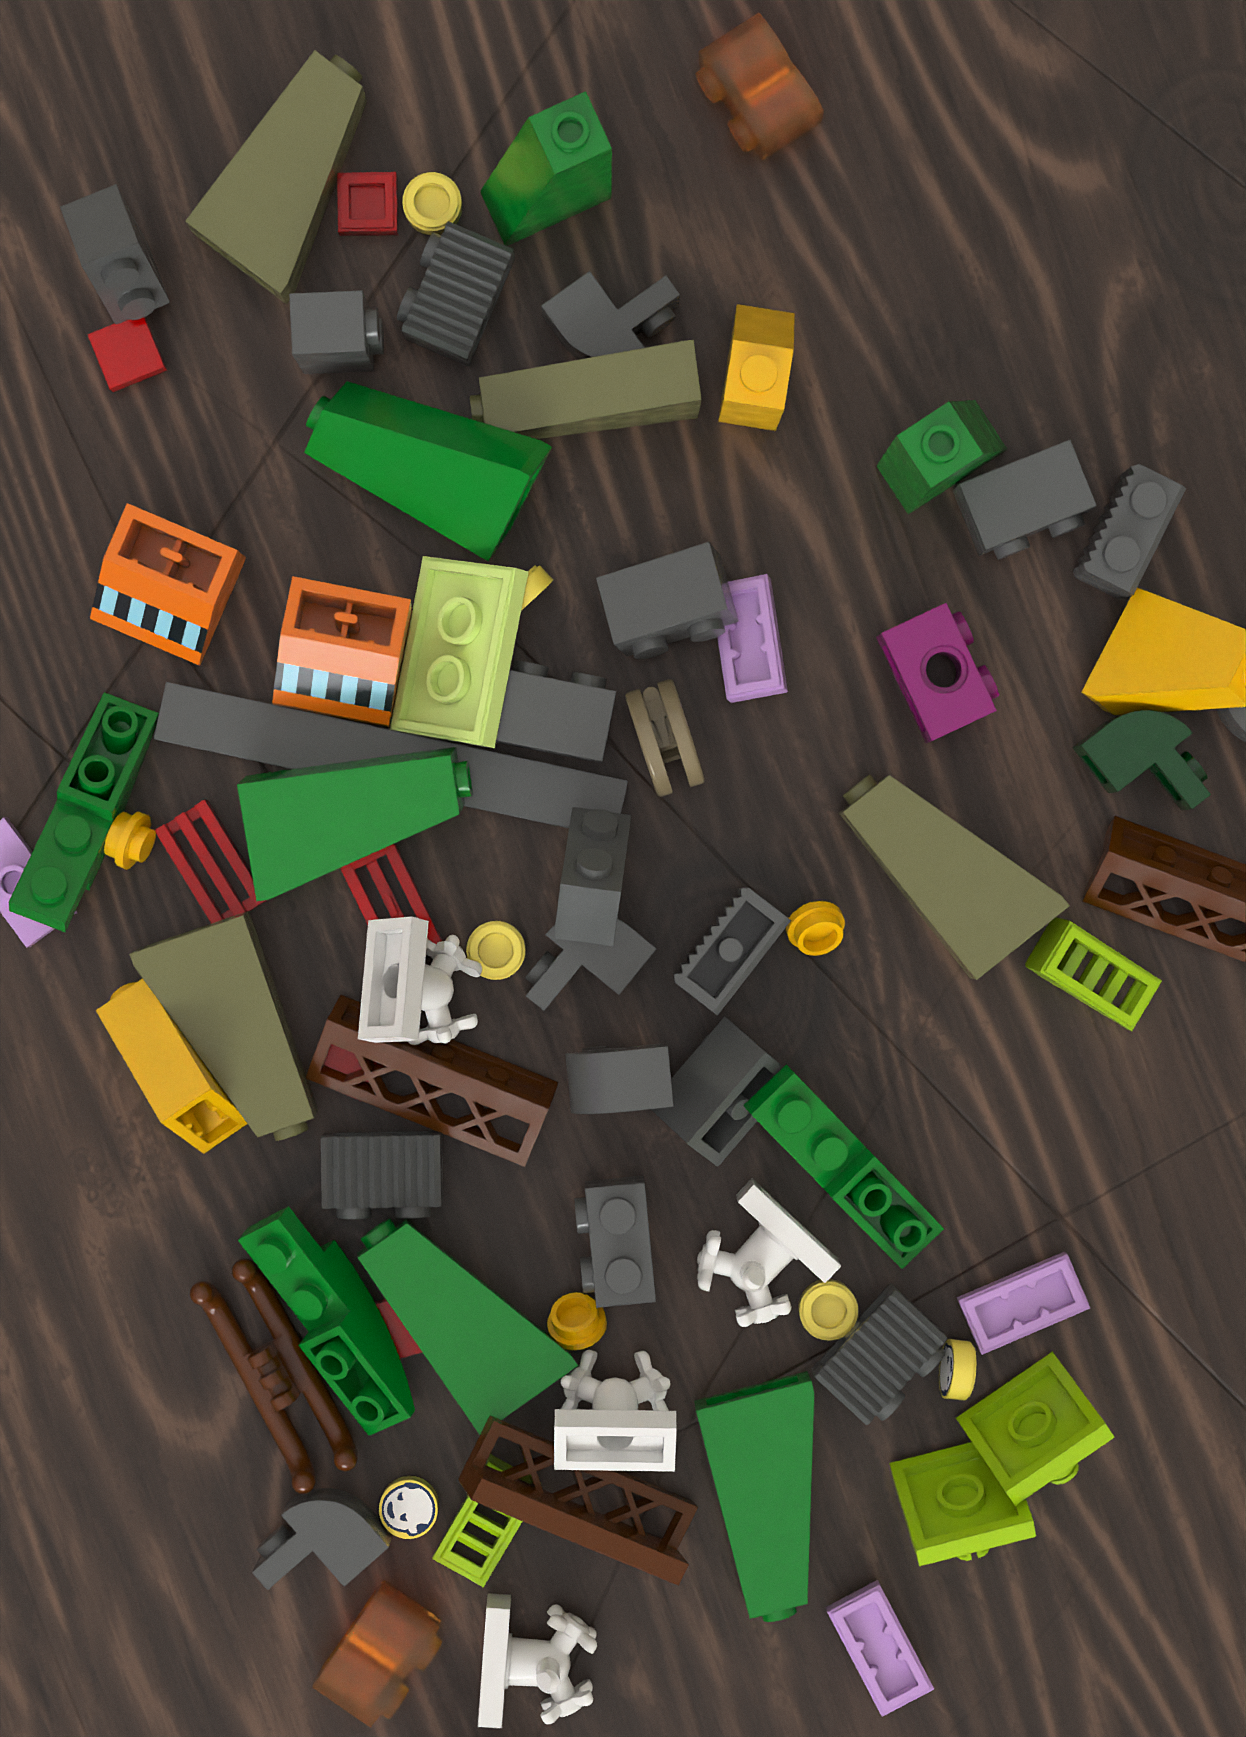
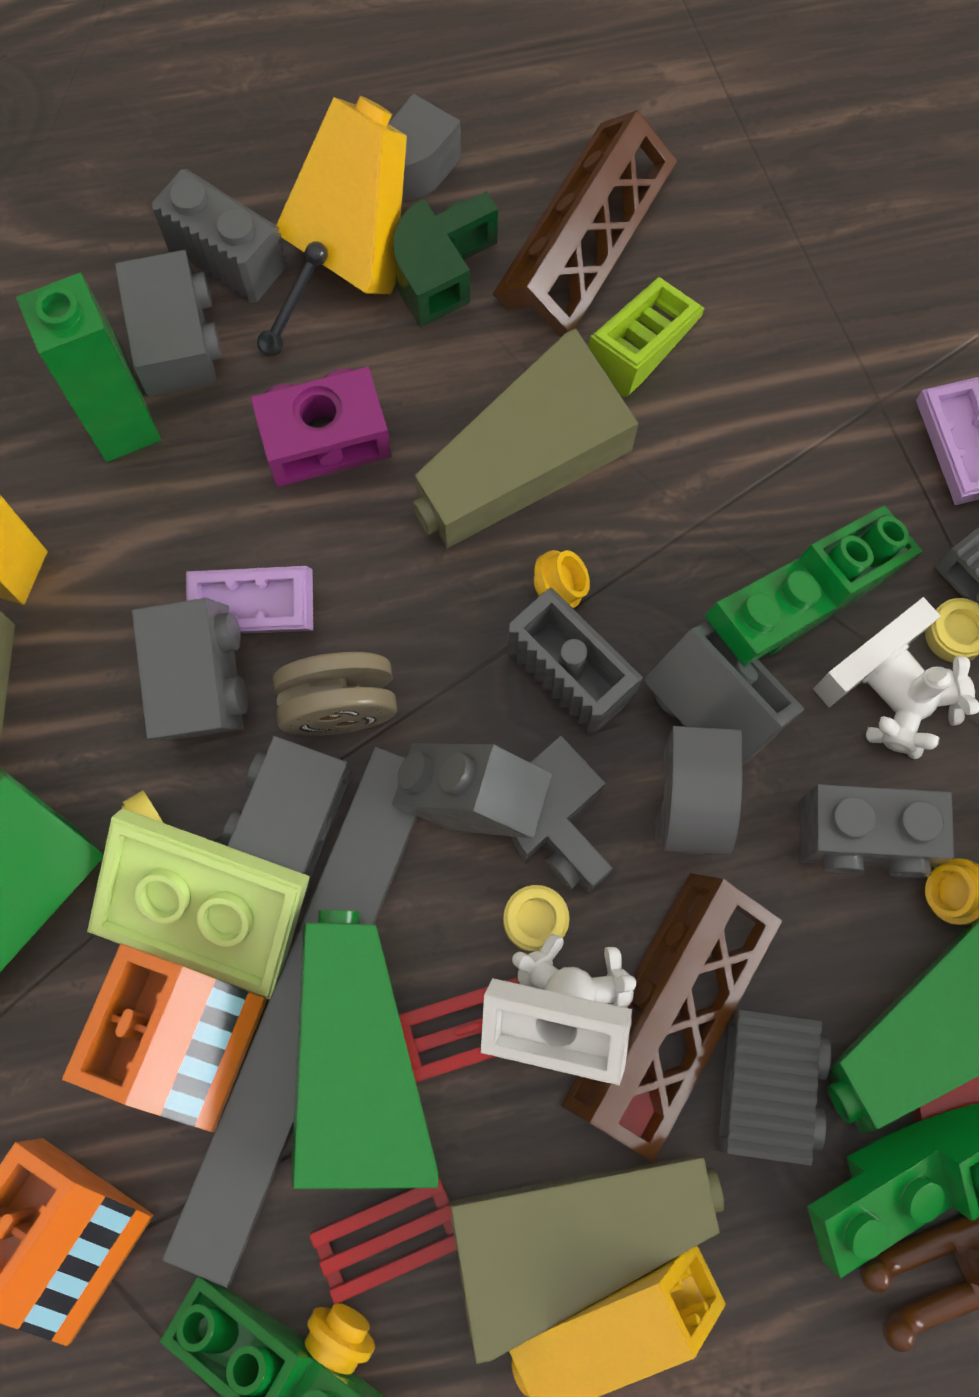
camera: 80 degrees left, 15 degrees down
(1028, 603) = (271, 341): none -> black hinge

